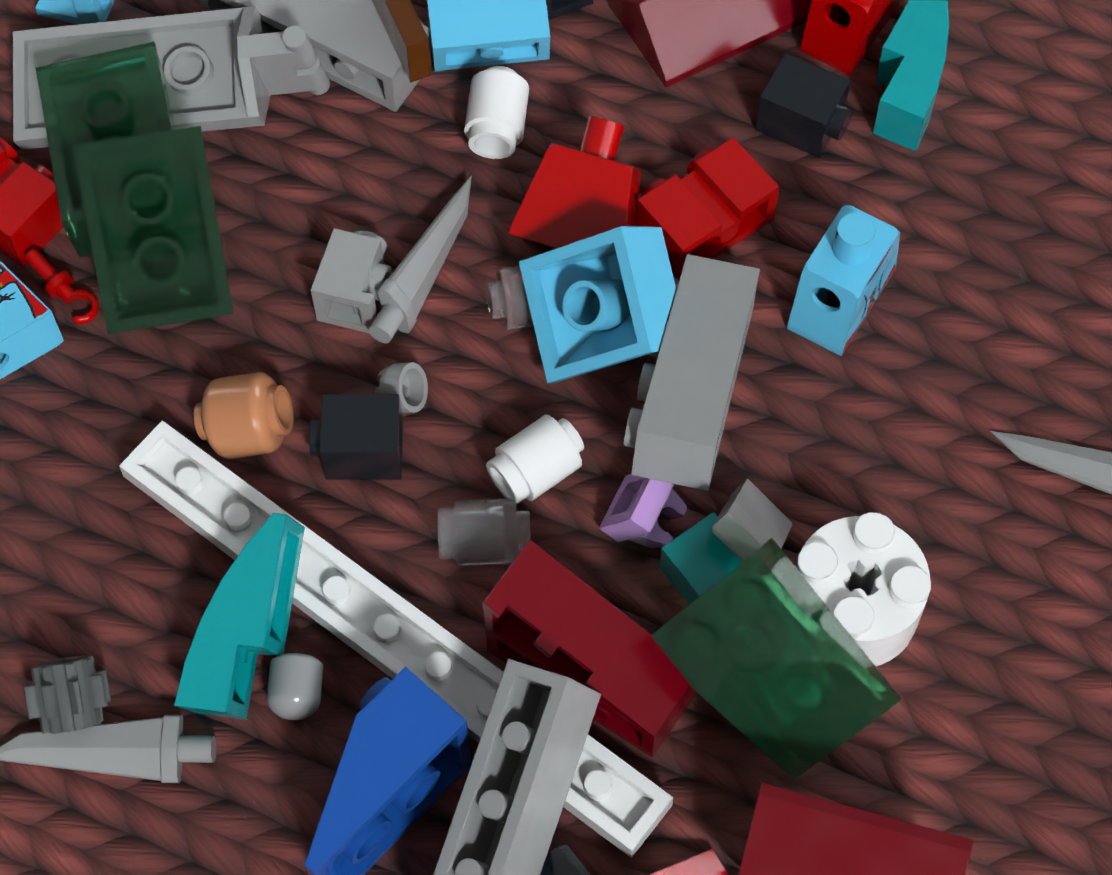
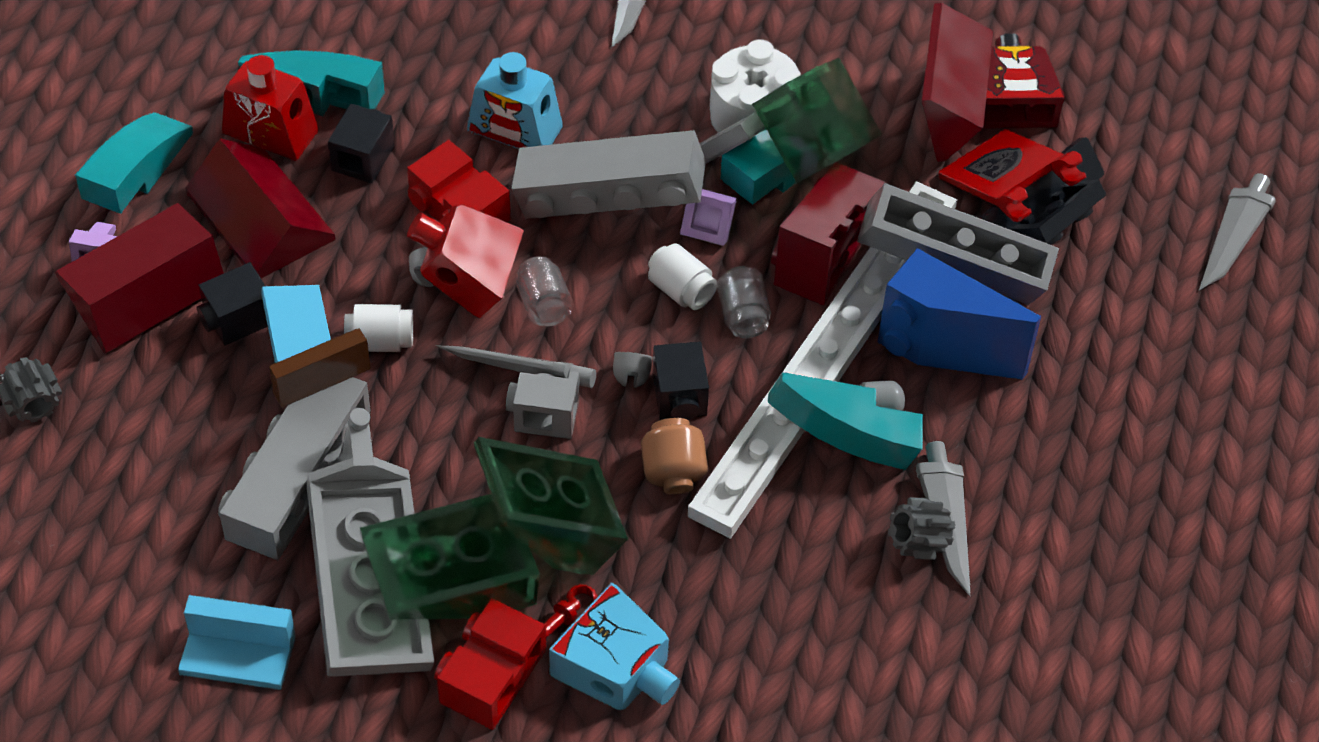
camera: 100 degrees left, 10 degrees down
(599, 300) = (566, 226): medium azure slope -> none

